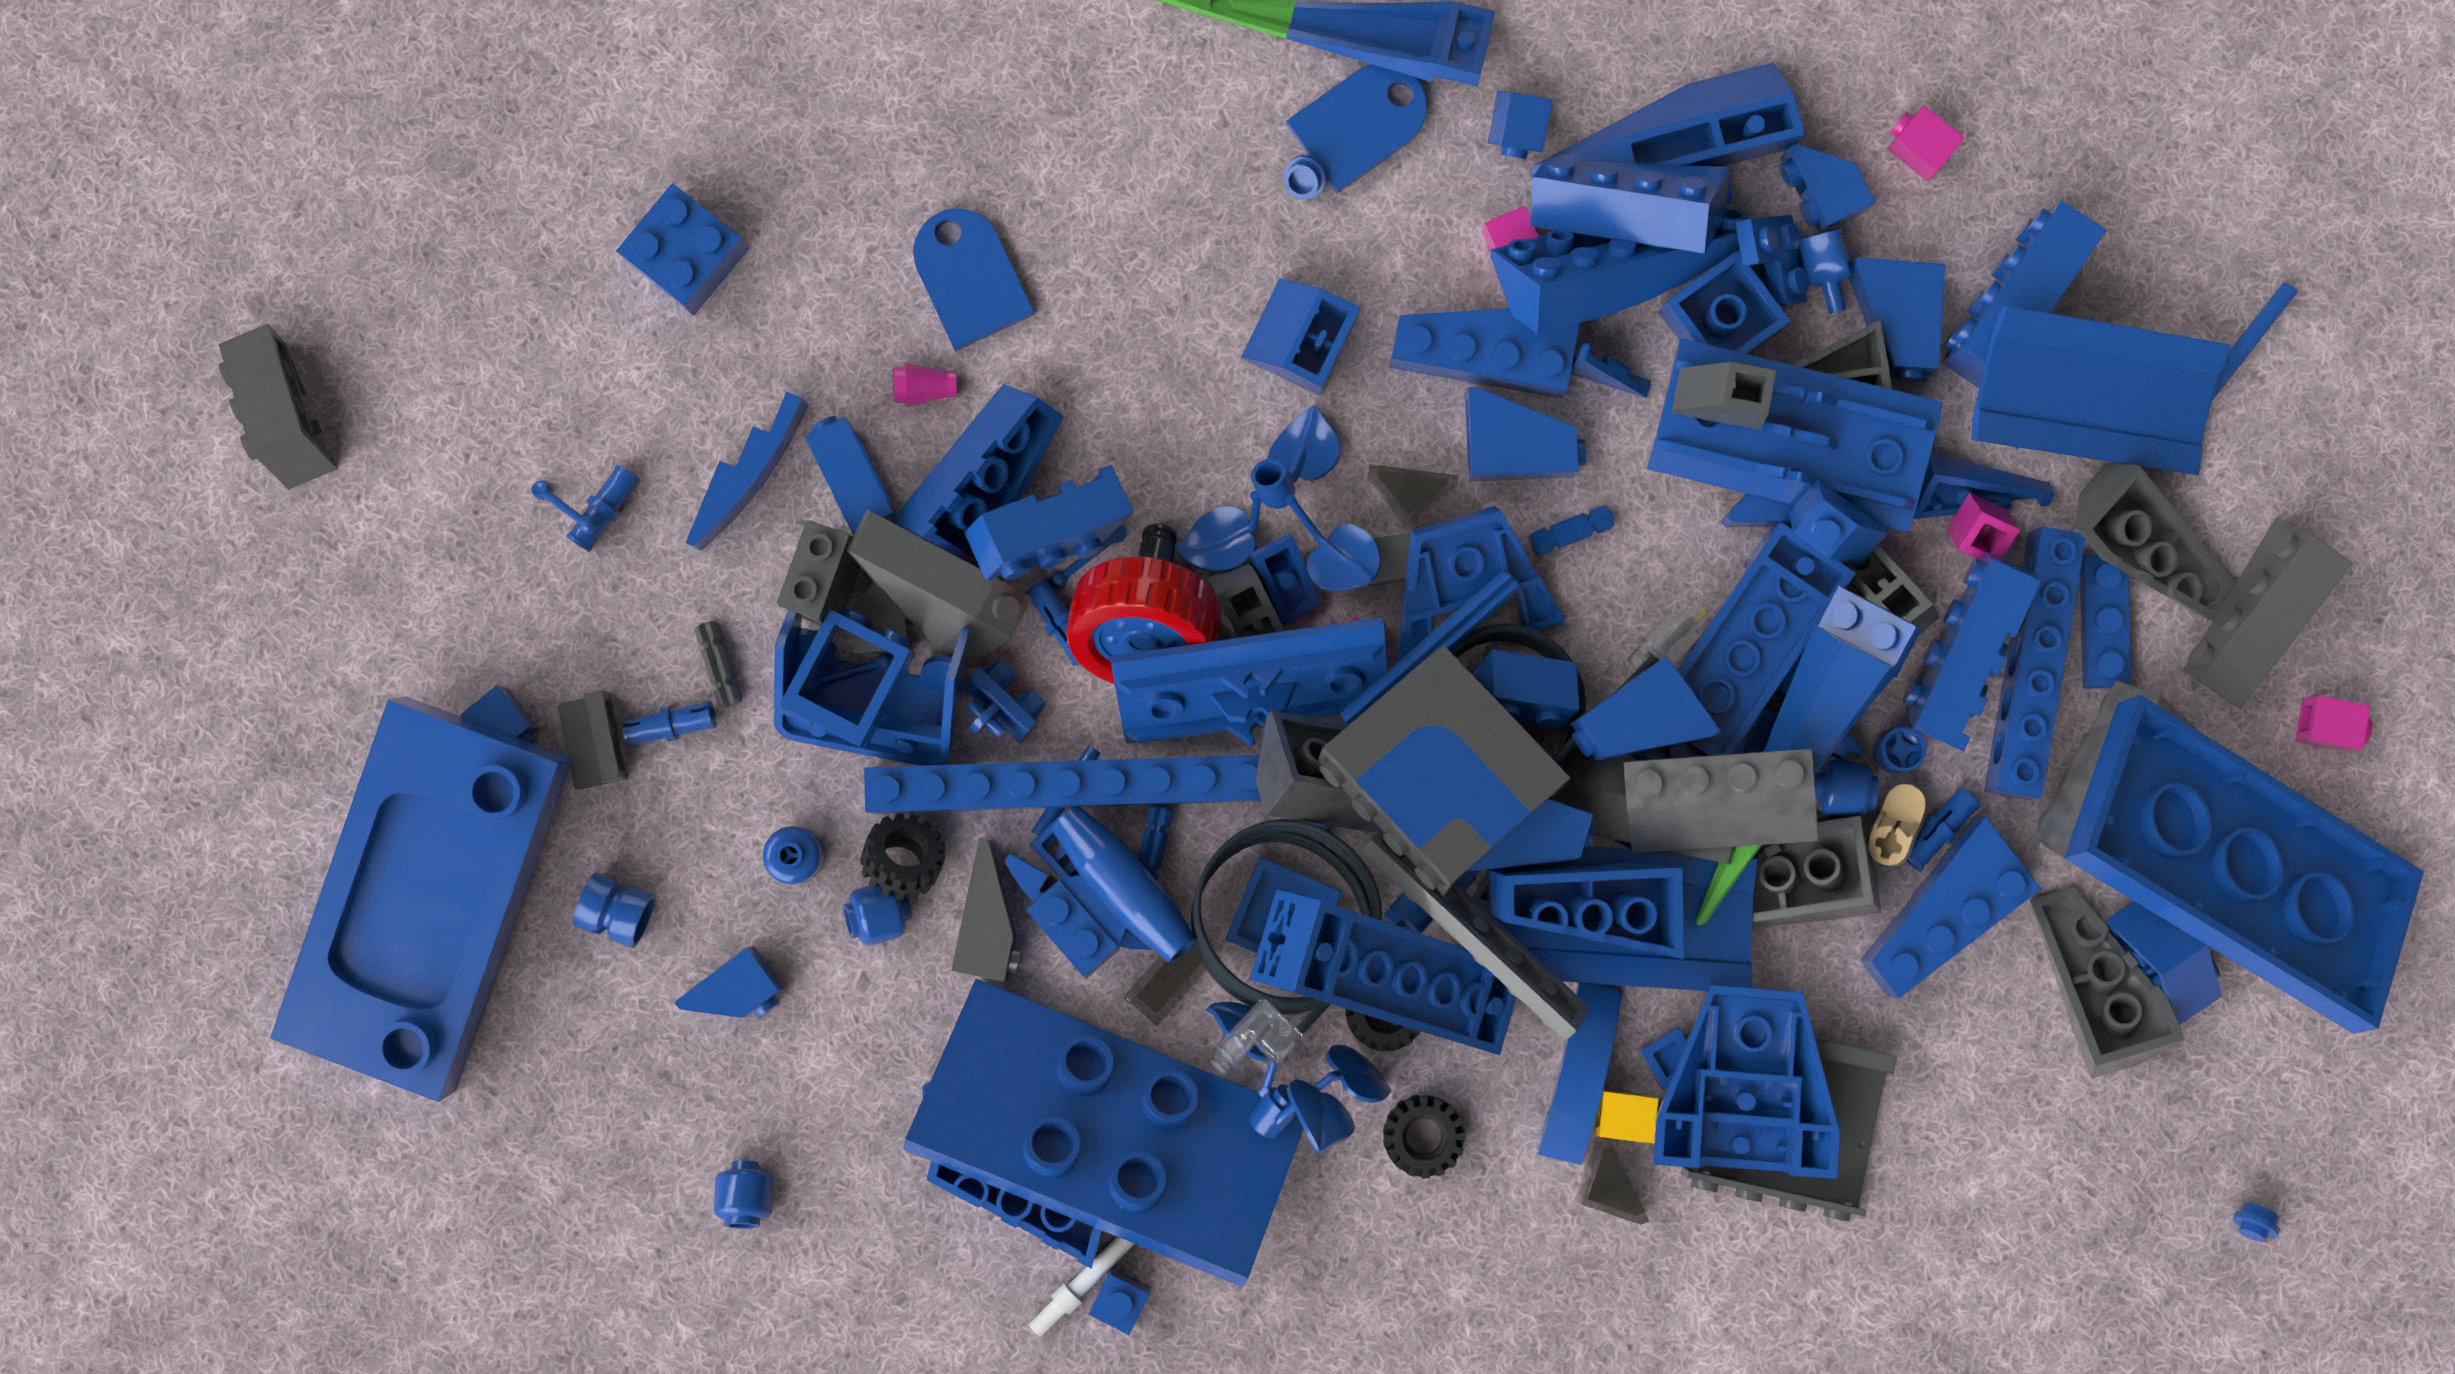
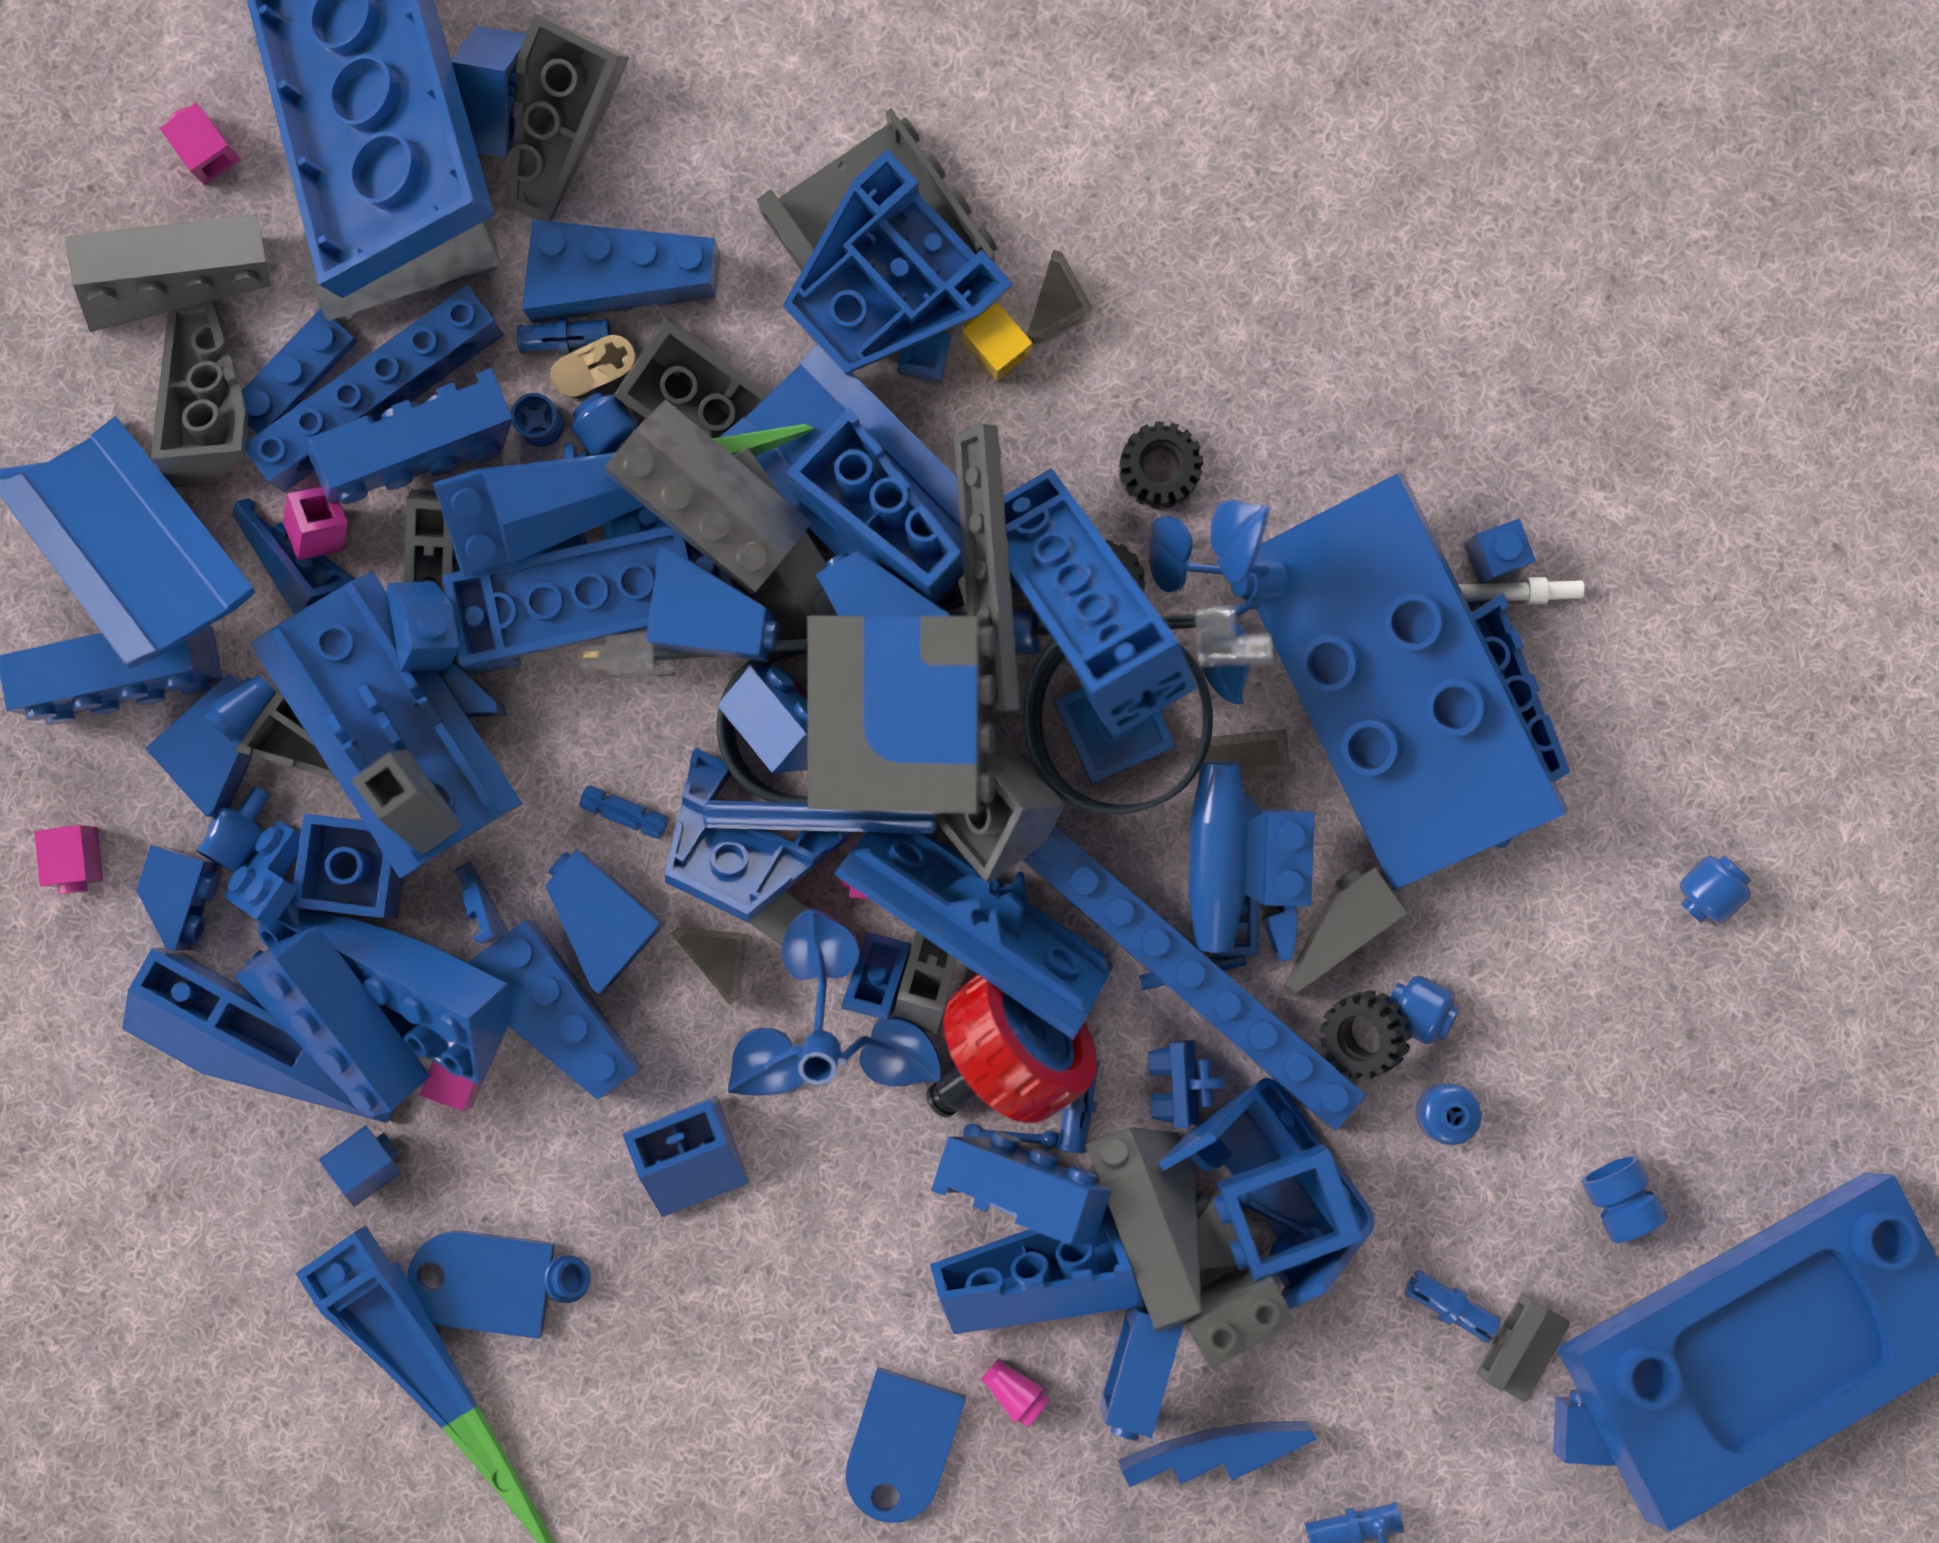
camera: 140 degrees left, 0 degrees up
(718, 664) = (1372, 1318): dark grey axle -> none
(736, 988) = (1583, 1051): blue slope -> none
(1155, 838) = (1160, 870): blue axle -> none
(1581, 1076) = (1004, 398): blue slope -> none
(1905, 352) = (240, 708): none -> blue cone

